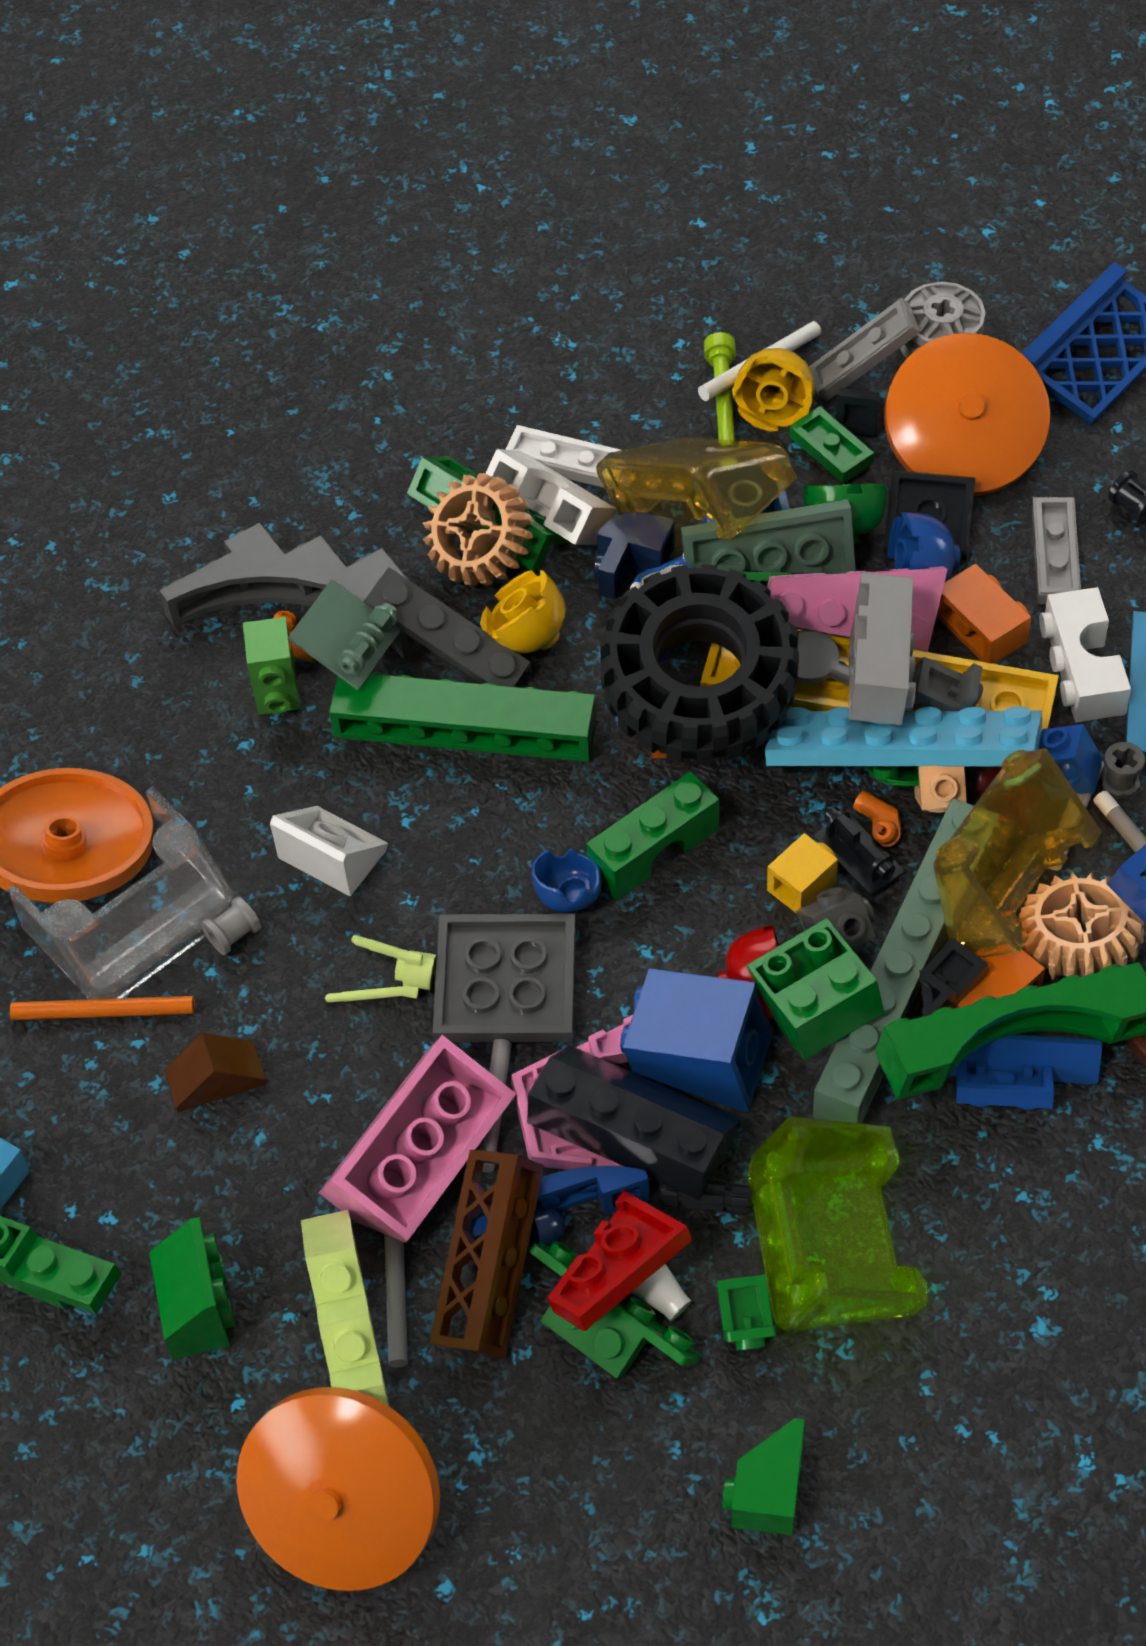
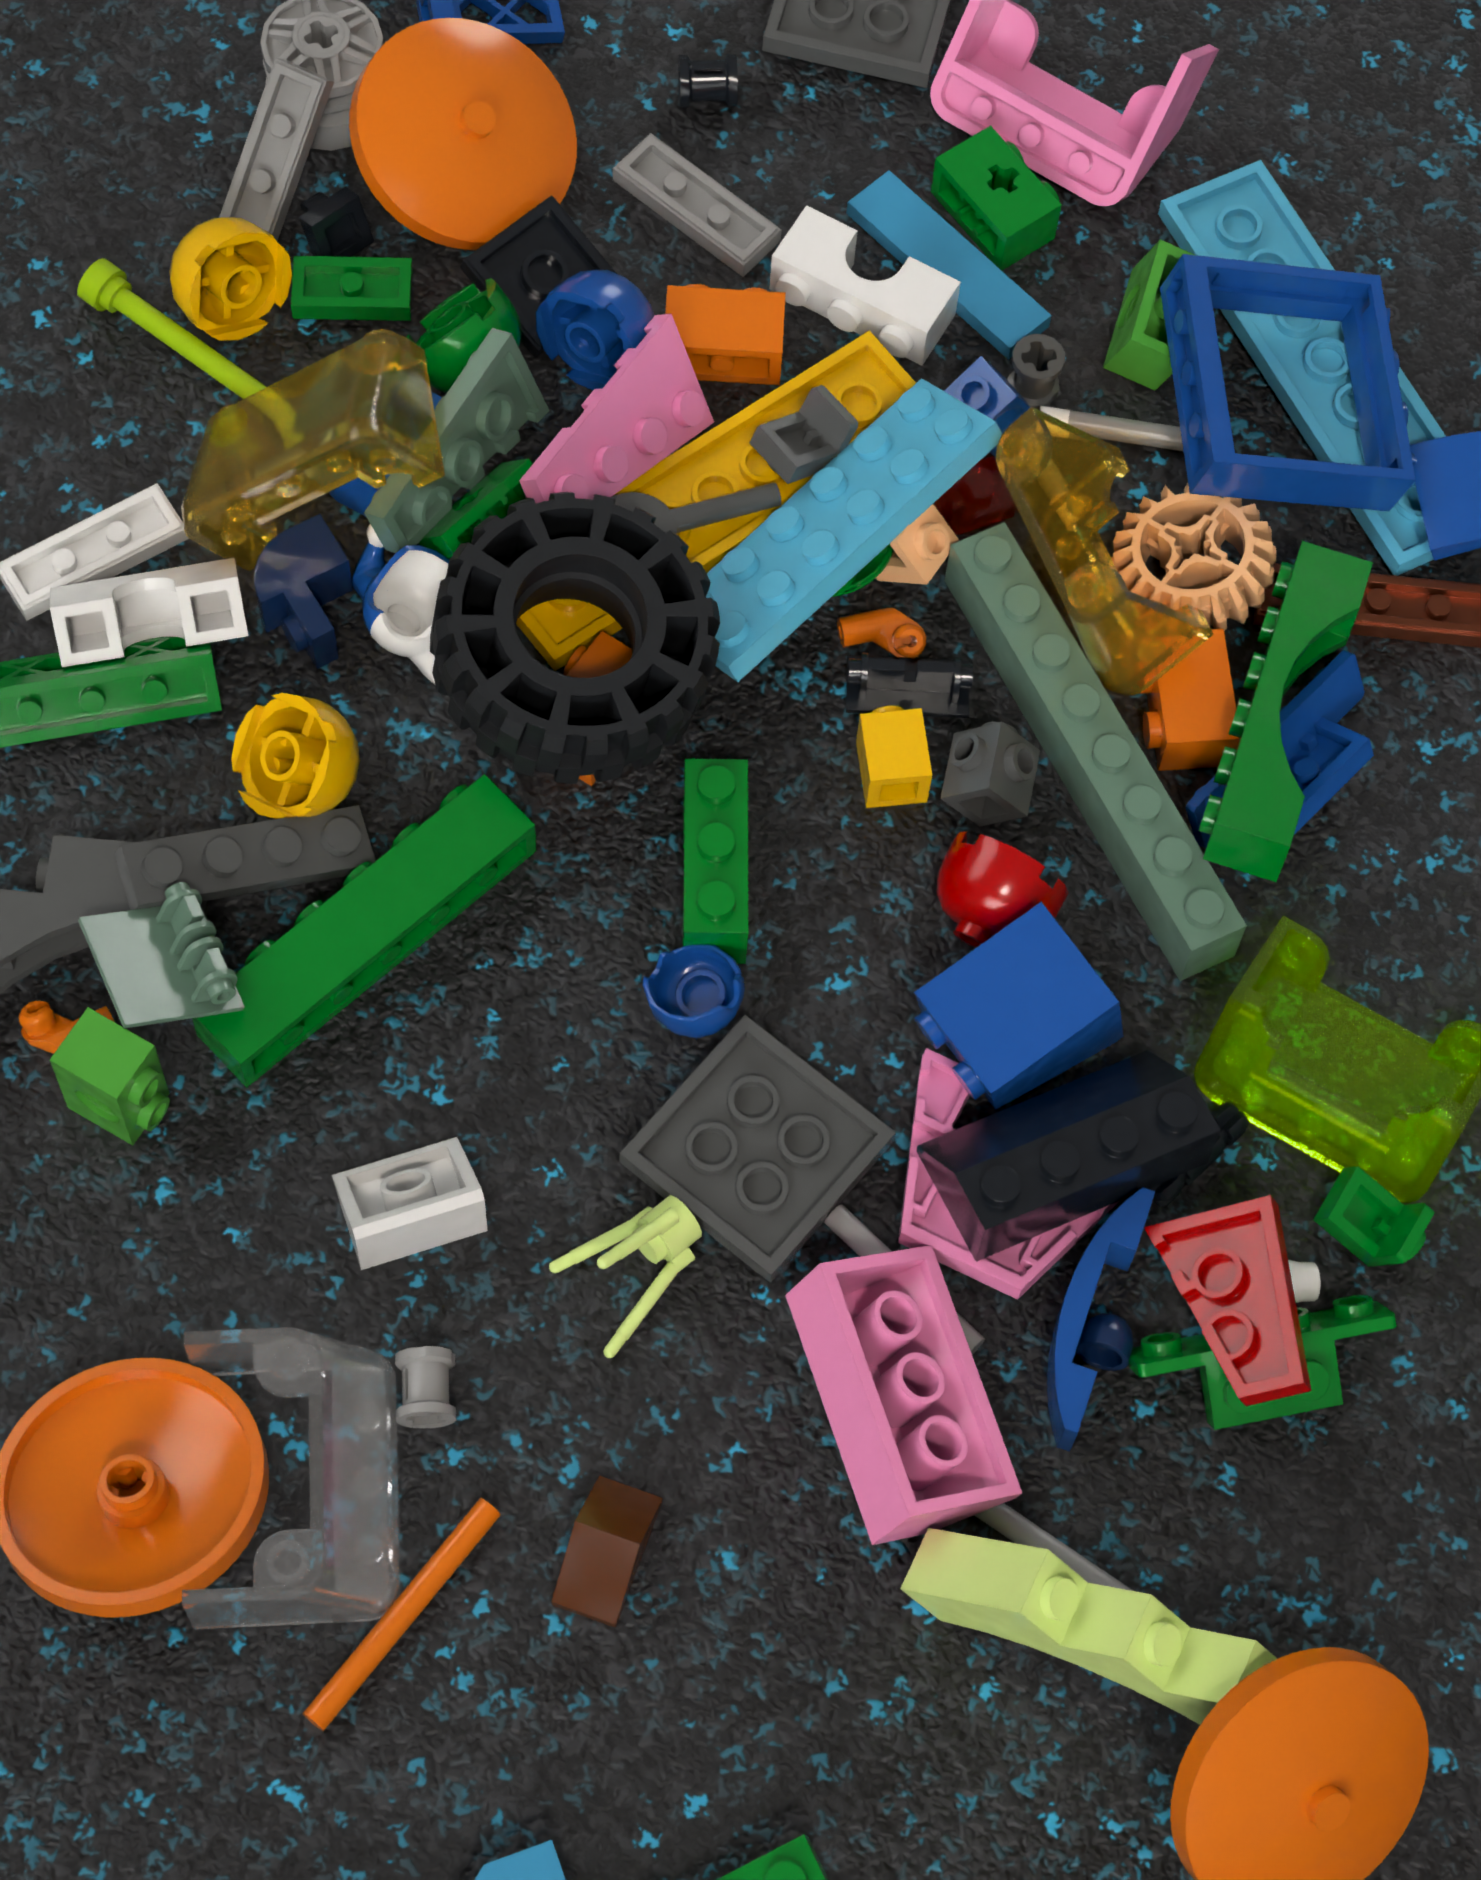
camera: 60 degrees left, 10 degrees up
(191, 1291) = (899, 1772): green slope -> none
(469, 509) = (86, 747): light nougat gear -> none
(501, 1258) = (1136, 1408): reddish brown fence -> none
(790, 342) = (164, 246): white bar -> none
(816, 988) = (1094, 849): green slope -> none
(882, 650) = (724, 457): light grey wedge -> none
(950, 976) = (1167, 723): black slope -> none

